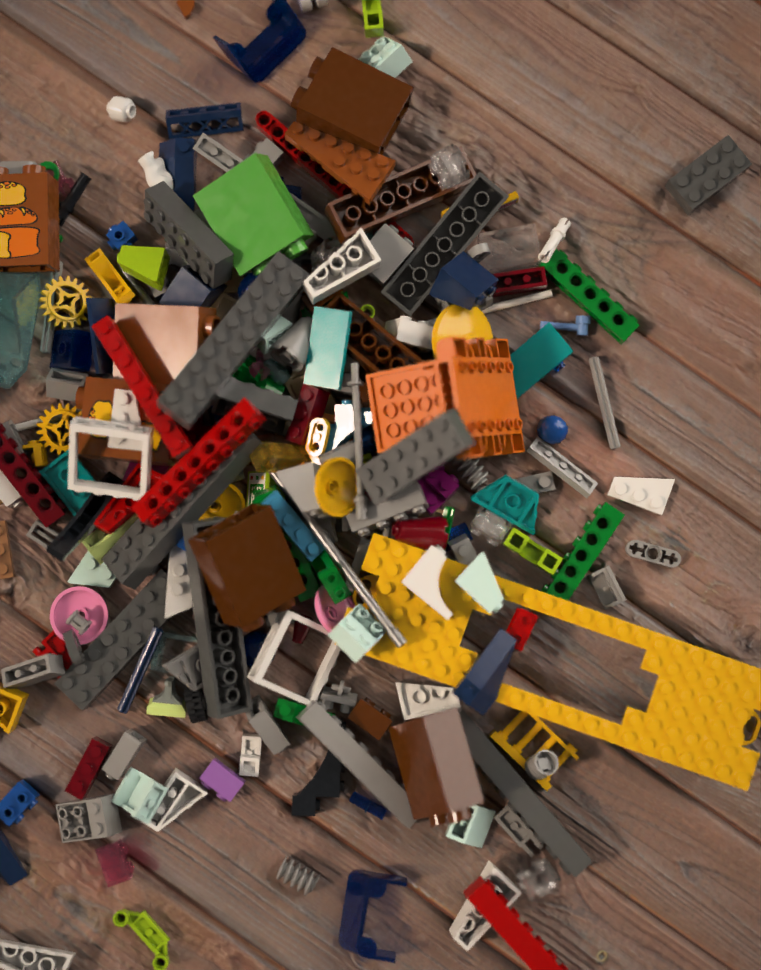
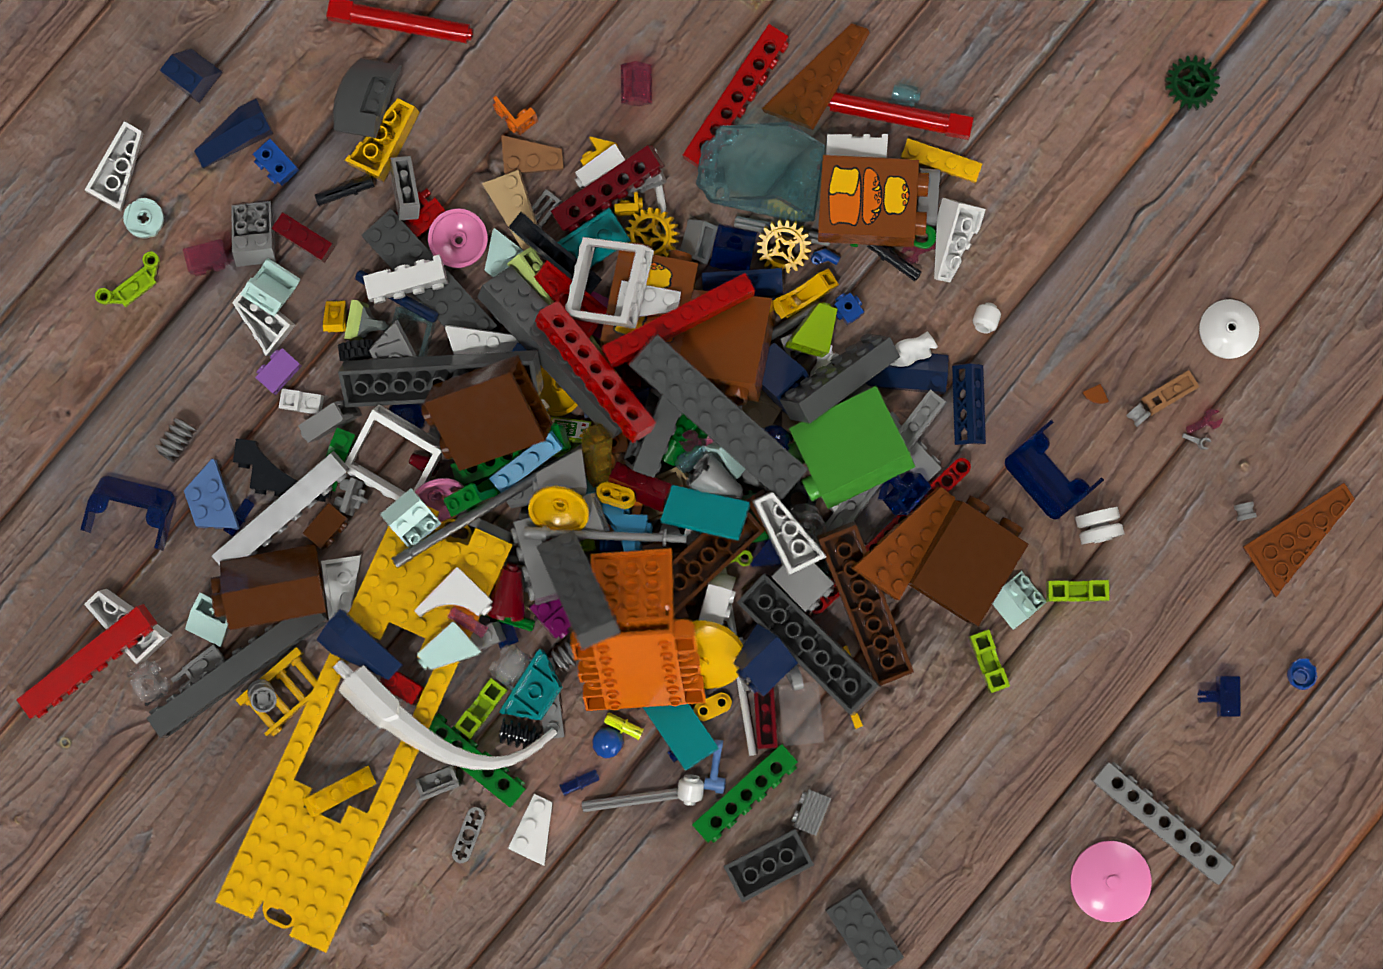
camera: 95 degrees right, 0 degrees up
(36, 145) = (954, 231): none -> white wedge
(39, 567) = (510, 199): none -> tan wing
(40, 732) = (344, 190): none -> black pin
(71, 935) = (135, 225): none -> light aqua plate
(72, 265) = (824, 255): none -> blue arm
(74, 647) = (424, 231): dark grey beam -> none
(78, 622) = (449, 238): light grey bush -> none
(122, 660) = (405, 280): none -> white wedge
(123, 754) = (313, 274): light grey slope -> none
(164, 729) = (334, 316): none -> yellow slope
(293, 165) = (906, 493): none -> clear blue brick
(353, 835) = (210, 499): none -> medium blue wing
(362, 291) = (766, 557): none -> clear blue slope
(433, 86) = (988, 661): none -> lime arch
(449, 166) = (886, 655): clear brick -> none
(453, 567) = (467, 622): none -> clear pink pin
(510, 333) = (712, 706): none -> yellow plate
(535, 415) = (623, 725): none -> neon yellow axle
(548, 640) = (385, 712): none -> white piece
(554, 512) = (517, 734): none -> black piece
(557, 235) = (811, 765): white pin -> none
(562, 467) = (566, 748): light grey plate -> none
(590, 347) = (690, 789): none -> white head
(593, 452) = (579, 782): none -> clear blue axle
(599, 233) = (811, 812): none -> light grey brick
(626, 680) = (339, 791): none -> yellow plate
(654, 267) = (768, 865): none -> dark grey brick

